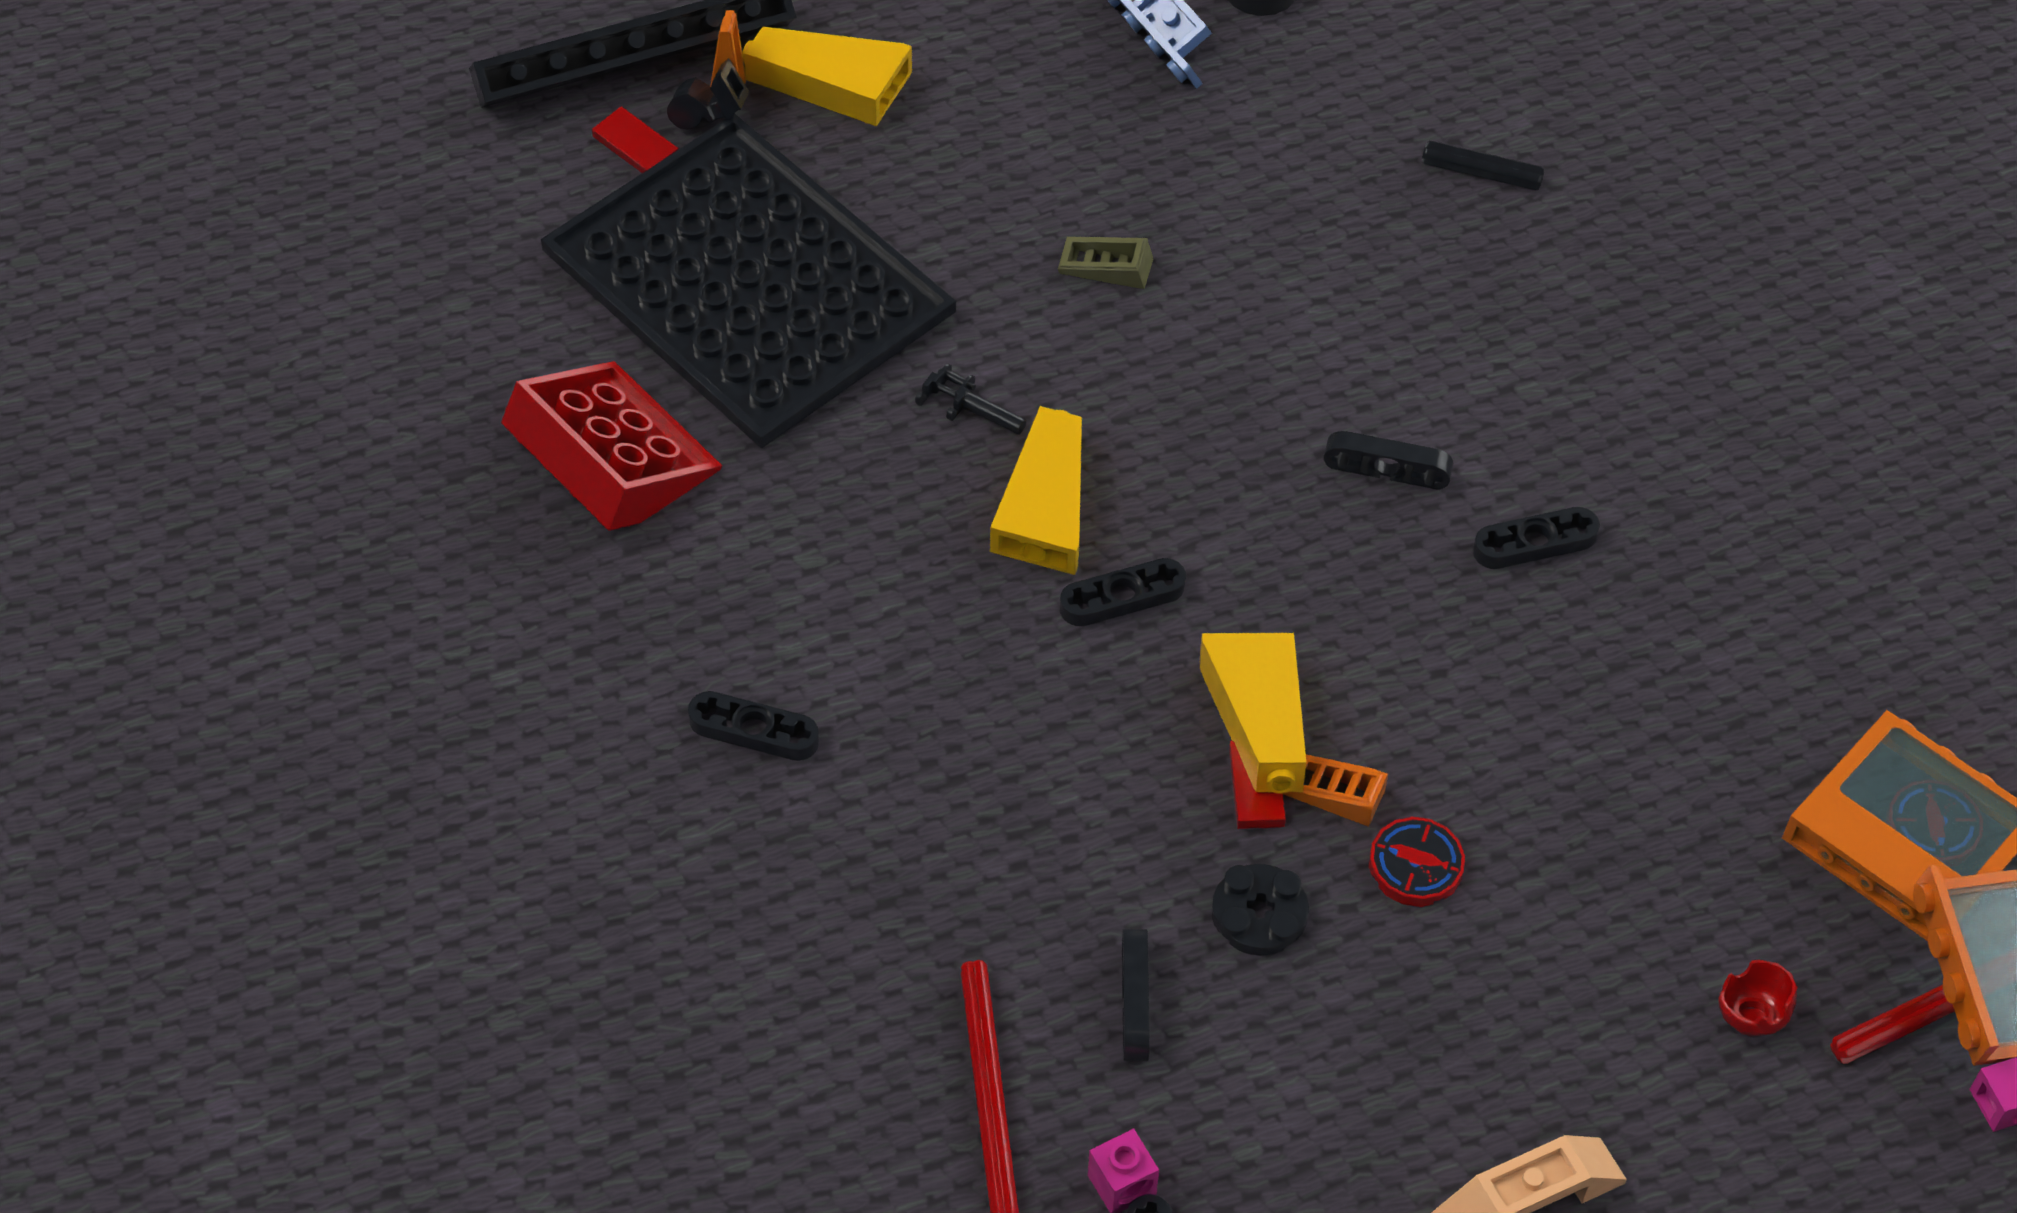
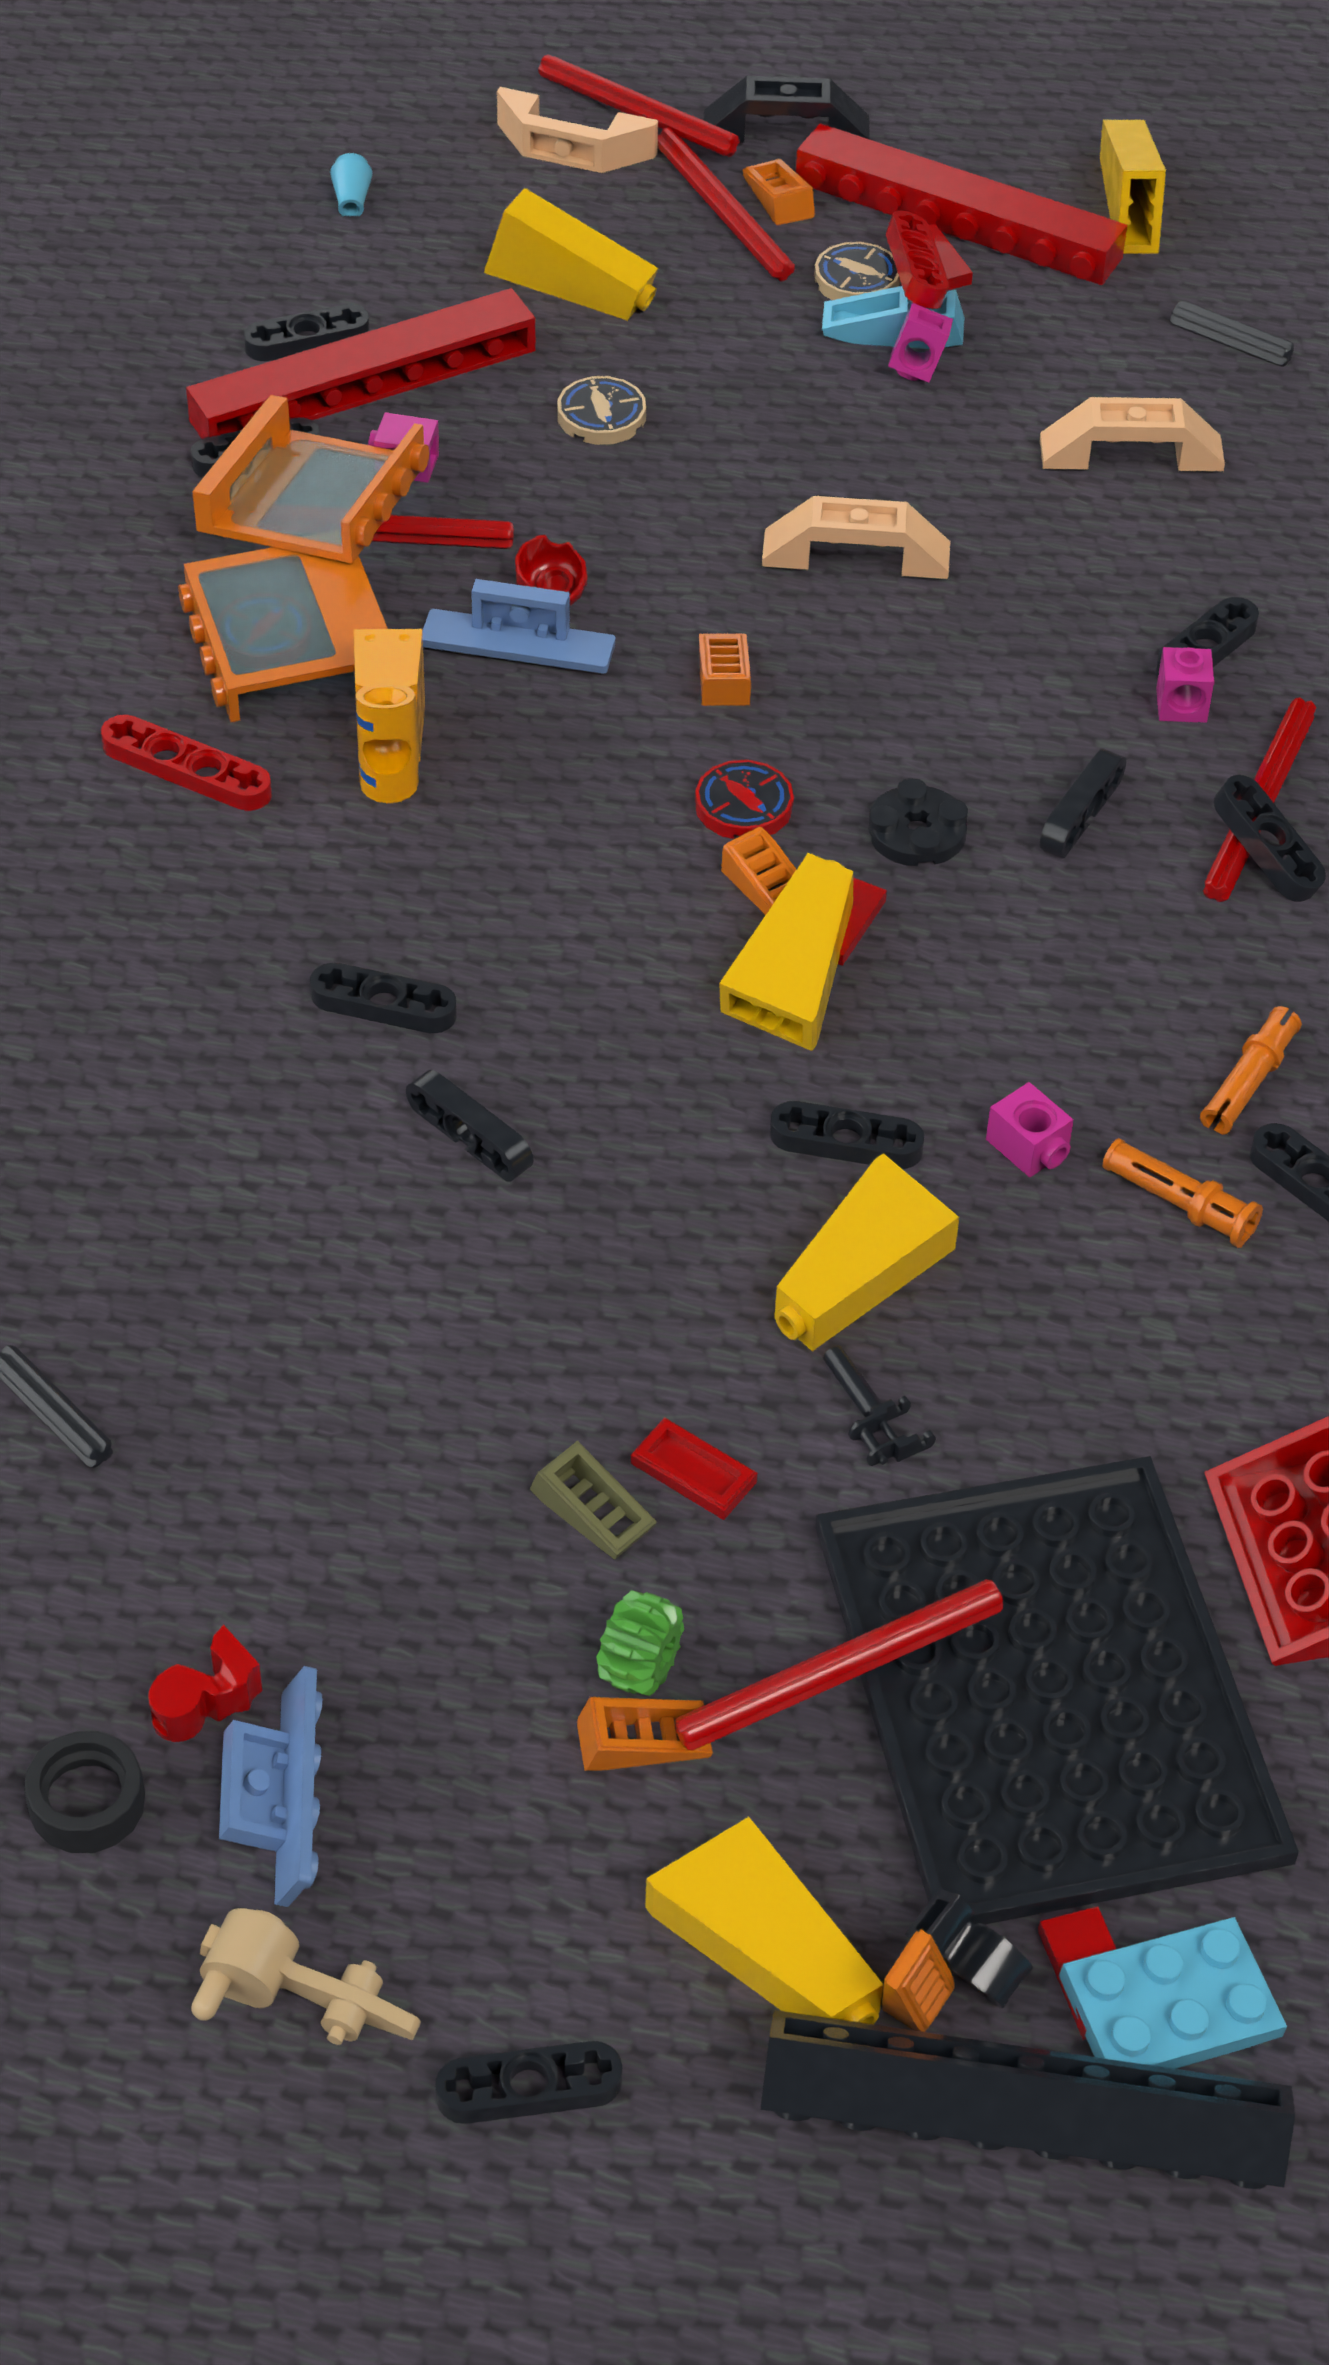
camera: 150 degrees left, 5 degrees down
(578, 143) = (1174, 1998): none -> medium azure plate
(827, 658) = (1207, 1197): none -> orange pin
(850, 811) = (1260, 1055): none -> orange pin
(876, 210) = (838, 1665): none -> red axle
(968, 1040) = (1281, 872): none -> black beam
(978, 130) = (618, 1752): none -> orange slope
(986, 631) = (1030, 1130): none -> dark pink brick
(1008, 169) = (640, 1643): none -> bright green gear
(1059, 312) = (694, 1468): none -> red tile
(1242, 51) = (185, 1697): none -> red leg
(1525, 1003) = (724, 669): none -> orange slope
(1728, 928) = (519, 626): none -> medium blue bracket
(1747, 747) = (389, 711): none -> light orange piece
(1864, 658) = (190, 758): none -> red beam

